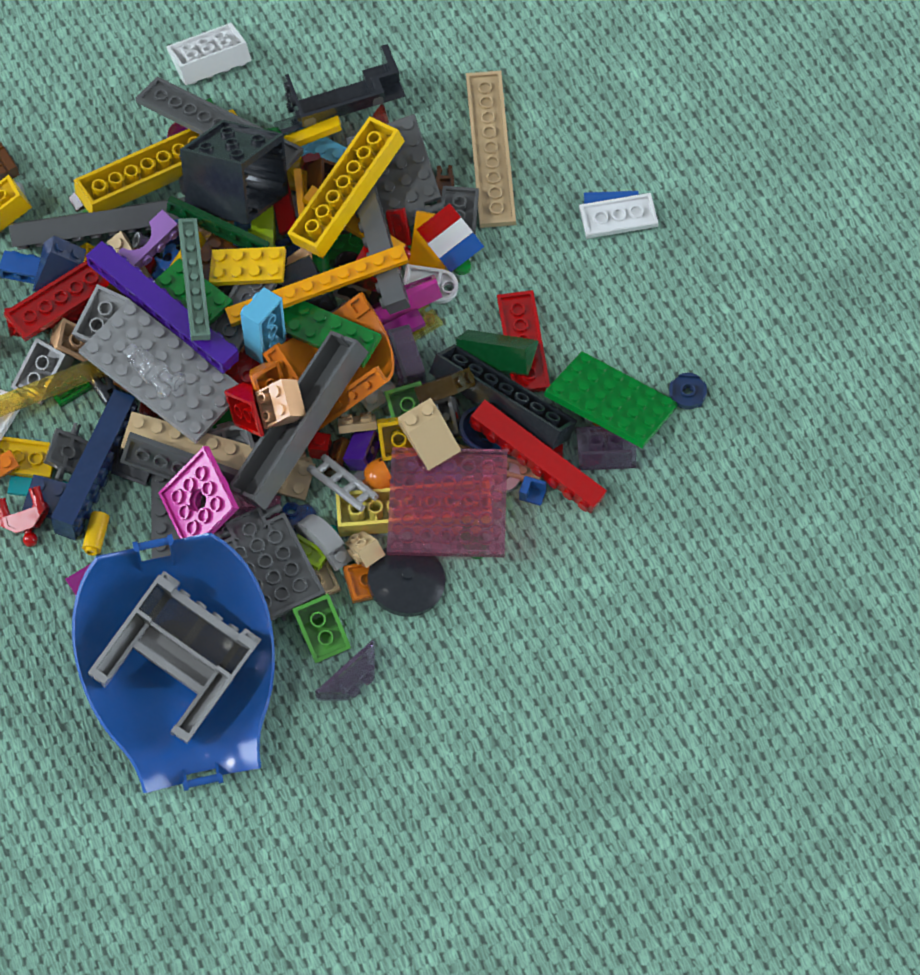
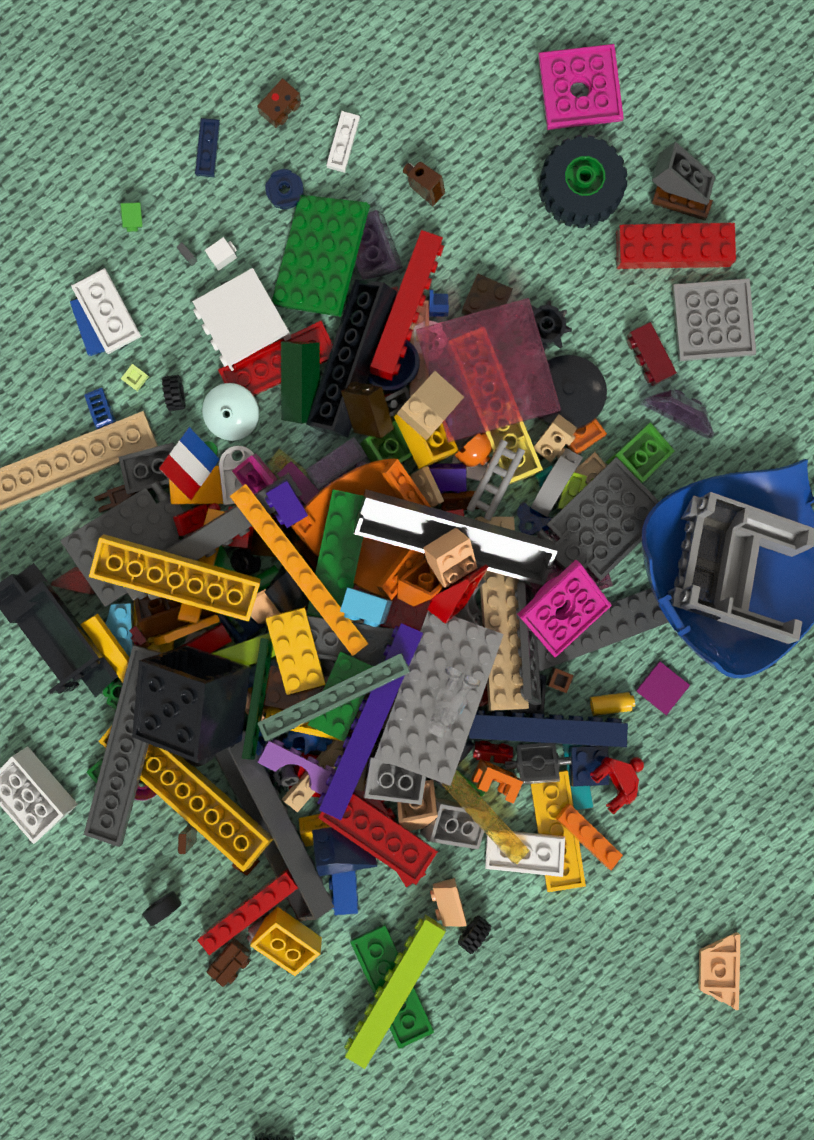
camera: 110 degrees left, 25 degrees up
(36, 181) = (248, 912): none -> red brick
(69, 122) = (162, 908): none -> black tyre
(72, 412) = (509, 781): none -> orange panel
(93, 417) = (485, 750): none -> red hinge
(119, 146) = (186, 839): none -> reddish brown tile
(136, 491) = (559, 680): none -> reddish brown brick
(379, 288) = (286, 503): none -> dark purple brick
(417, 664) = (650, 354): none -> dark red brick
(431, 735) = (714, 320): none -> light grey plate
(476, 576) = (555, 323): none -> black brick
(490, 290) = (242, 410): none -> light aqua dish
(517, 718) = (675, 245): none -> red brick
(522, 247) = (173, 393): none -> black tyre
(523, 531) = (485, 295): none -> dark brown brick
(524, 195) = (99, 424): none -> blue slope
(550, 223) = (134, 377): none -> yellowish green plate
(561, 740) = (681, 204): none -> reddish brown plate
(573, 319) = (240, 318): none -> white panel
(584, 745) = (683, 175): none -> dark grey slope
(608, 648) = (583, 181): none -> black wheel
(641, 321) = (221, 253): none -> white brick
(650, 293) = (186, 254): none -> dark grey tile
(653, 508) = (425, 182): none -> reddish brown torso
(700, 256) = (131, 216): none -> bright green brick
(718, 453) = (343, 141): none -> white plate
(722, 657) = (587, 65): none -> dark pink piece
(749, 339) = (207, 147): none -> dark blue tile
(772, 407) = (279, 103): none -> reddish brown brick

